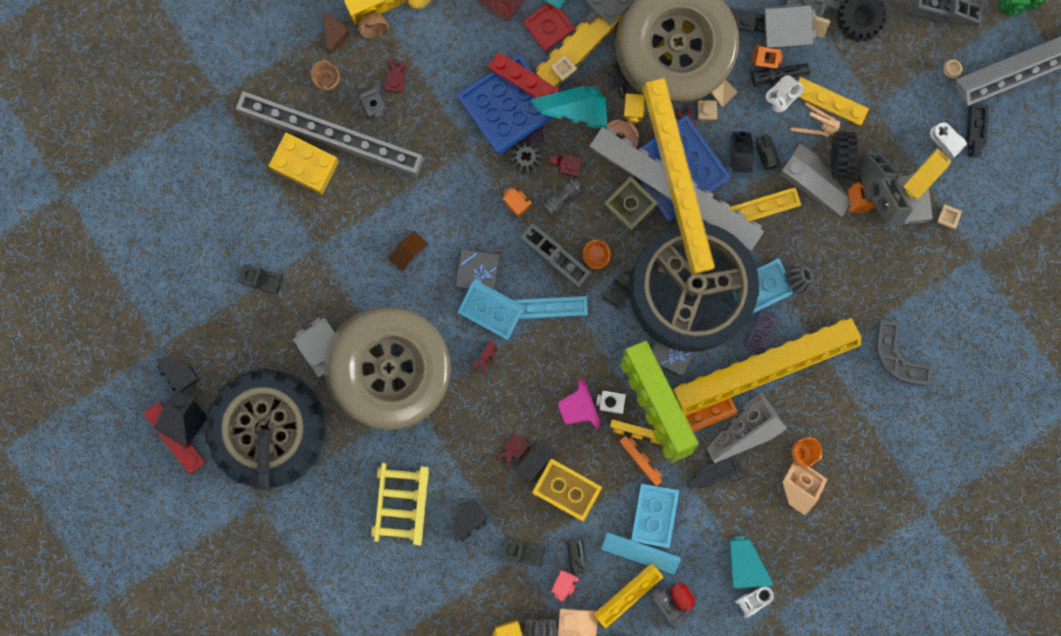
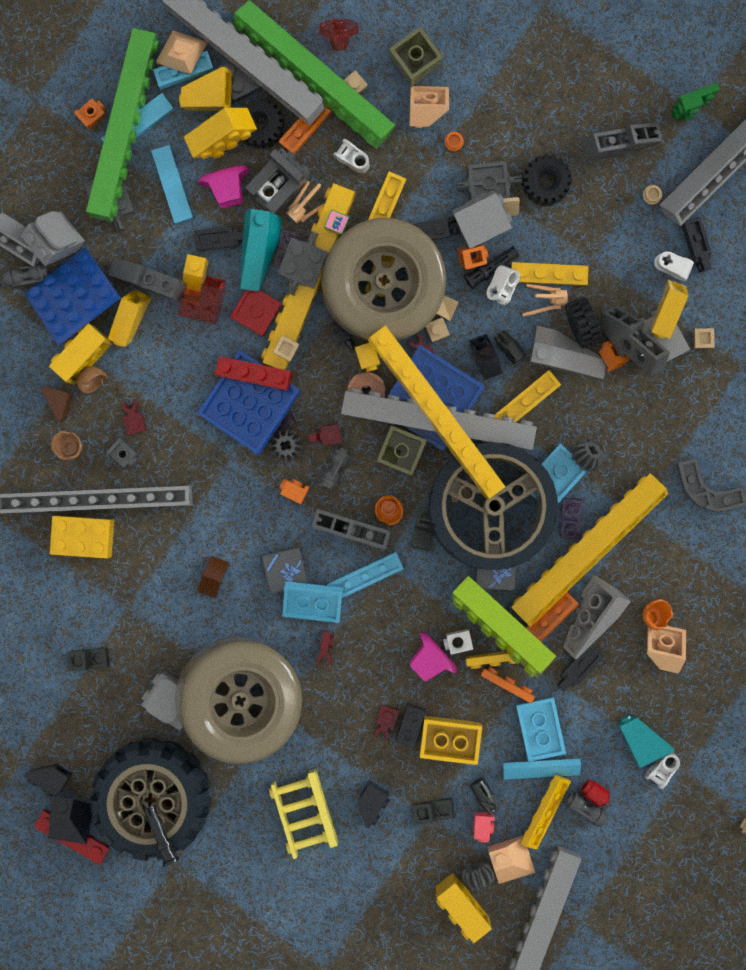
camera: 20 degrees left, 5 degrees up
(576, 104) = (315, 377): teal wedge -> none

